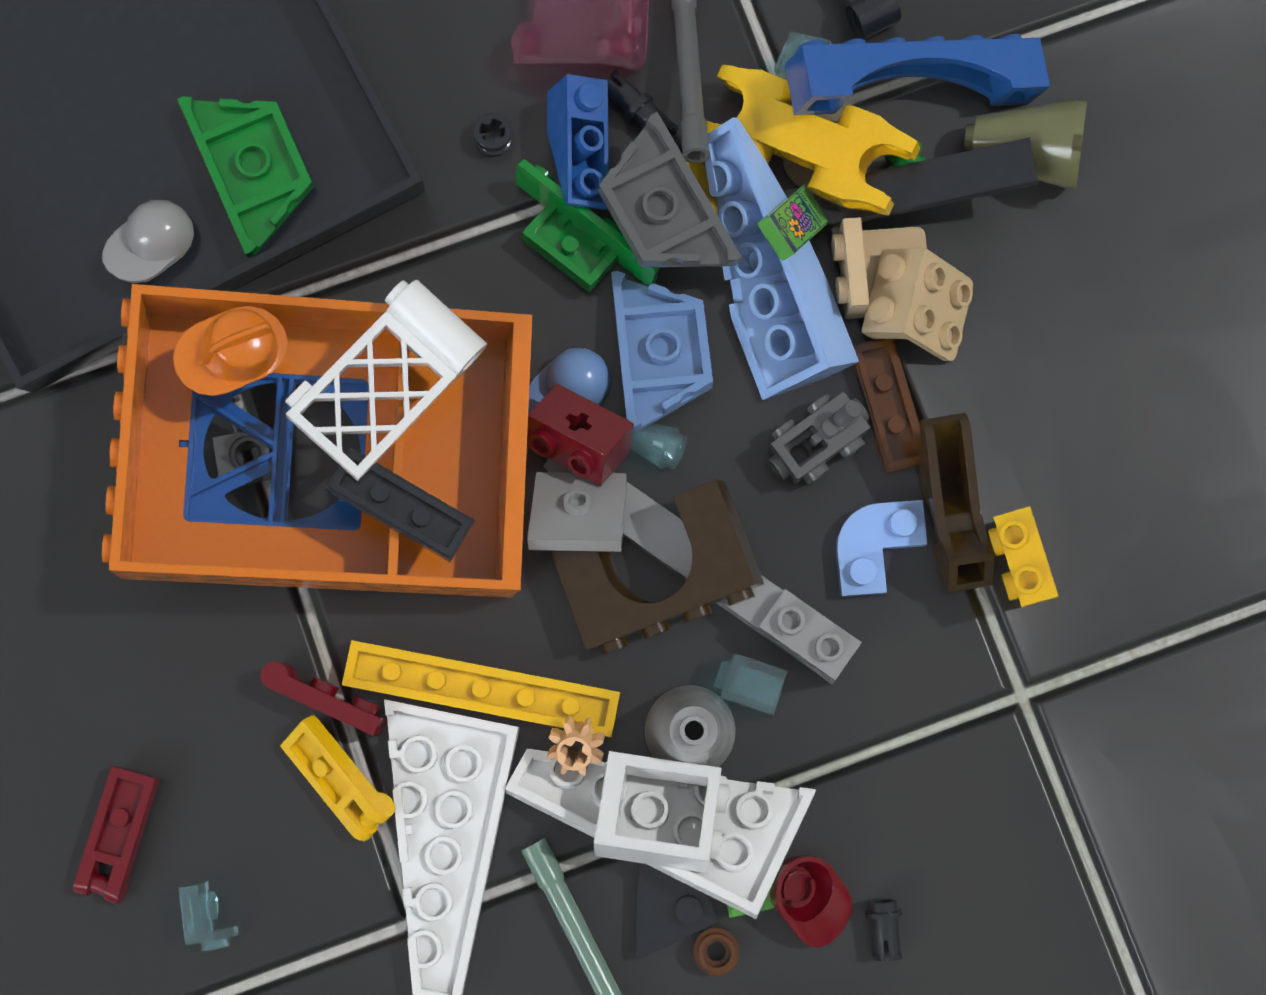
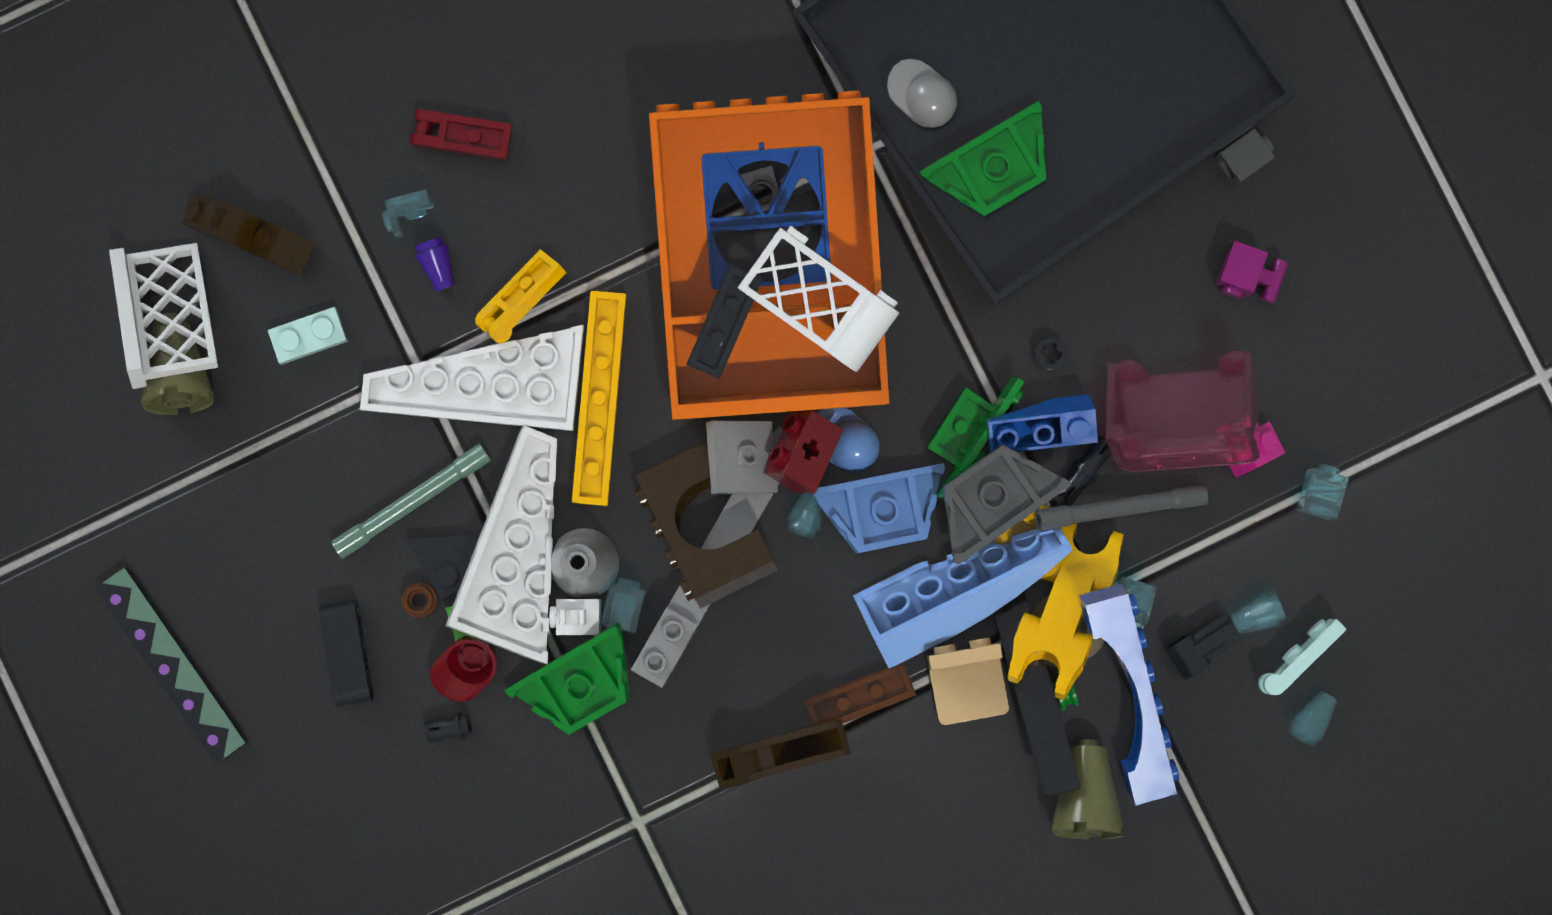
camera: 85 degrees right, 5 degrees up
(230, 350) = (828, 177): orange piece -> none
(277, 885) = (435, 262): none -> dark purple cone
(322, 697) = (580, 276): dark red plate -> none
(570, 758) = (552, 479): light nougat gear -> none
(658, 853) = (517, 507): white window -> none
(758, 746) = (576, 616): none -> white brick
(793, 222) = (991, 603): tile -> none
(830, 429) = (833, 653): dark grey brick -> none
(843, 751) = (579, 682): none -> green wing
(866, 536) = (752, 688): light blue plate -> none
(919, 301) = (943, 713): tan bracket -> none
(1029, 569) = (742, 811): yellow plate -> none

